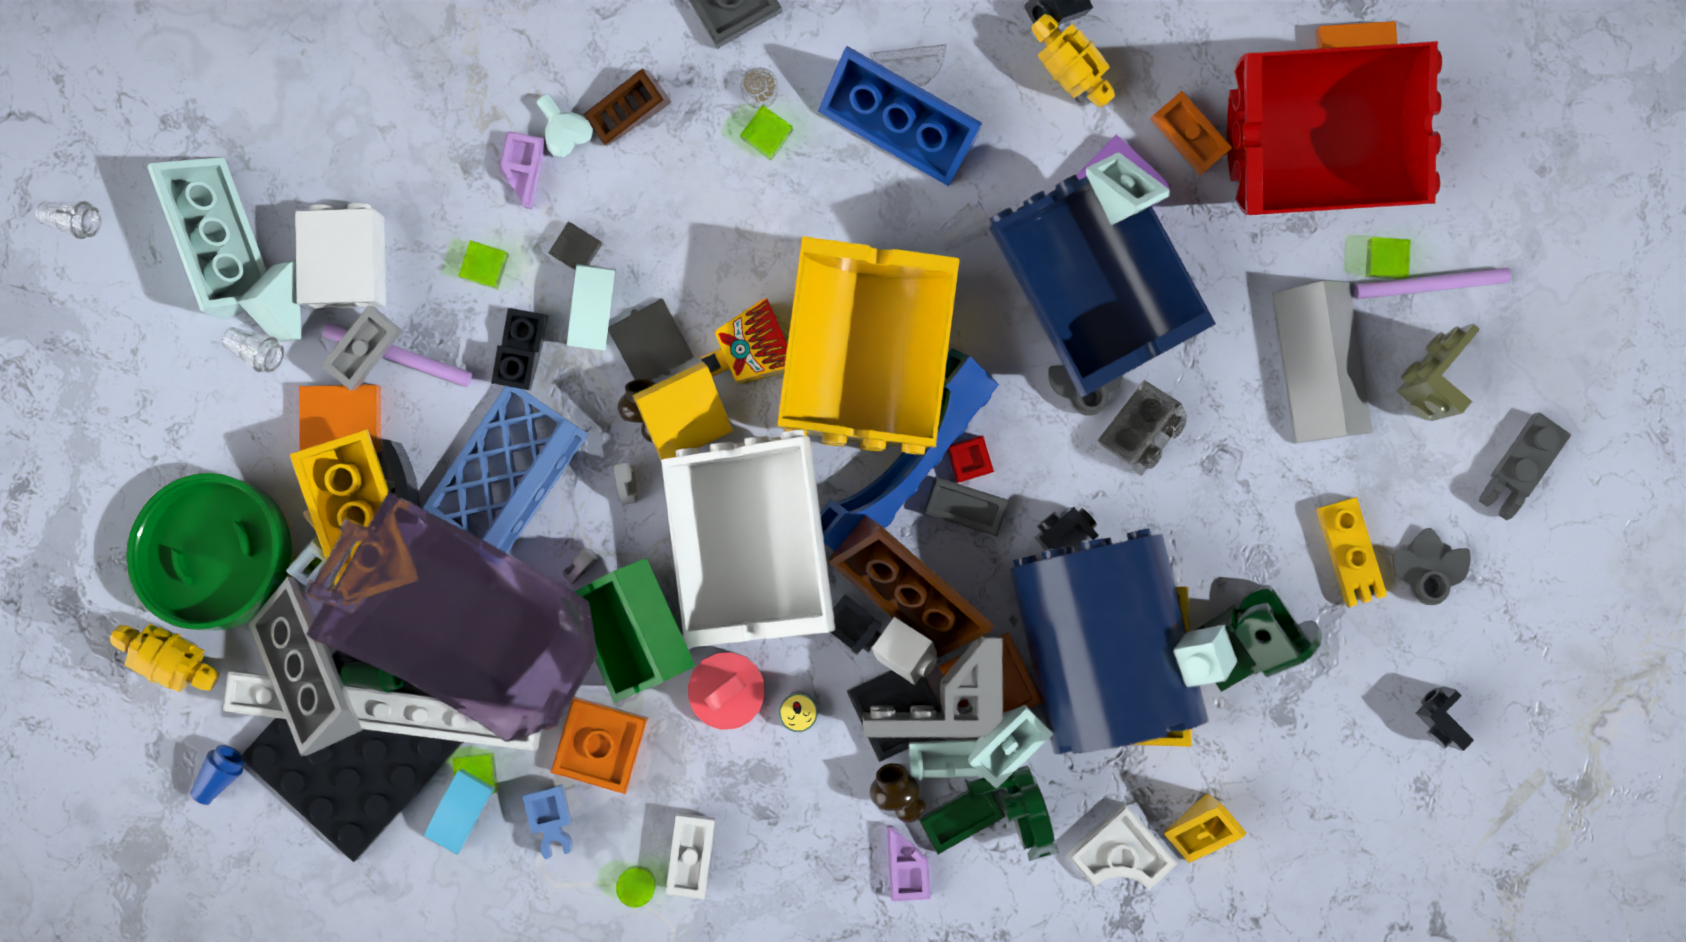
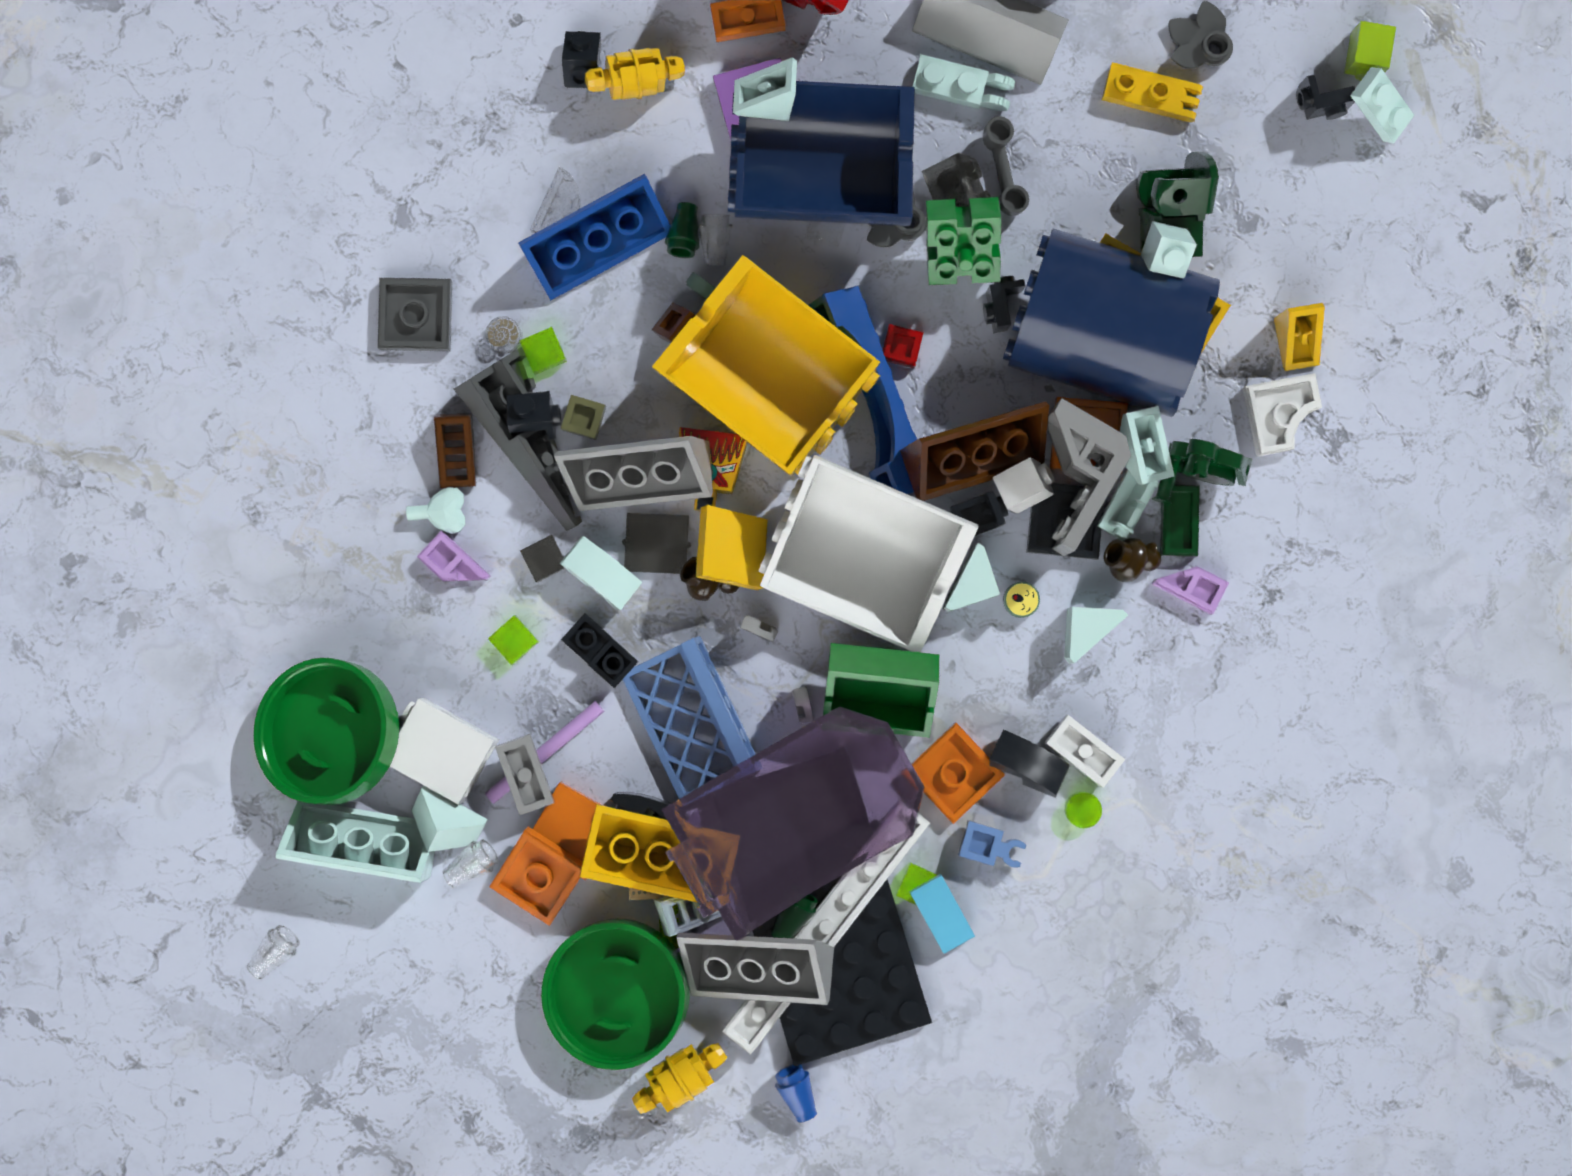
camera: 60 degrees left, 0 degrees up
(277, 416) = (538, 876): none -> orange tile
(293, 143) = (326, 731): none -> green brick
(647, 810) = (1030, 762): none -> black slope
(690, 136) = (528, 451): none -> dark grey wedge
(699, 156) = (533, 413): none -> black bracket
(700, 285) = (637, 472): none -> light grey slope
(725, 205) = (583, 417): none -> olive plate
(726, 690) = (971, 646): coral tile -> none
(785, 658) = (974, 582): none -> light aqua slope
(807, 791) = (1087, 627): none -> light aqua slope
(863, 233) = (672, 322): none -> reddish brown plate
(912, 237) = (700, 285): none -> sand green tile
(952, 194) = (683, 233): none -> dark green cone
(966, 506) = (937, 371): dark grey tile -> none
(1099, 457) = (963, 241): none -> green brick
(1219, 430) = (996, 136): none -> dark grey bar
(1249, 367) = (960, 84): none -> light aqua hinge
(1472, 777) = (1382, 105): none -> light aqua plate
(1517, 735) = (1369, 47): none -> lime brick

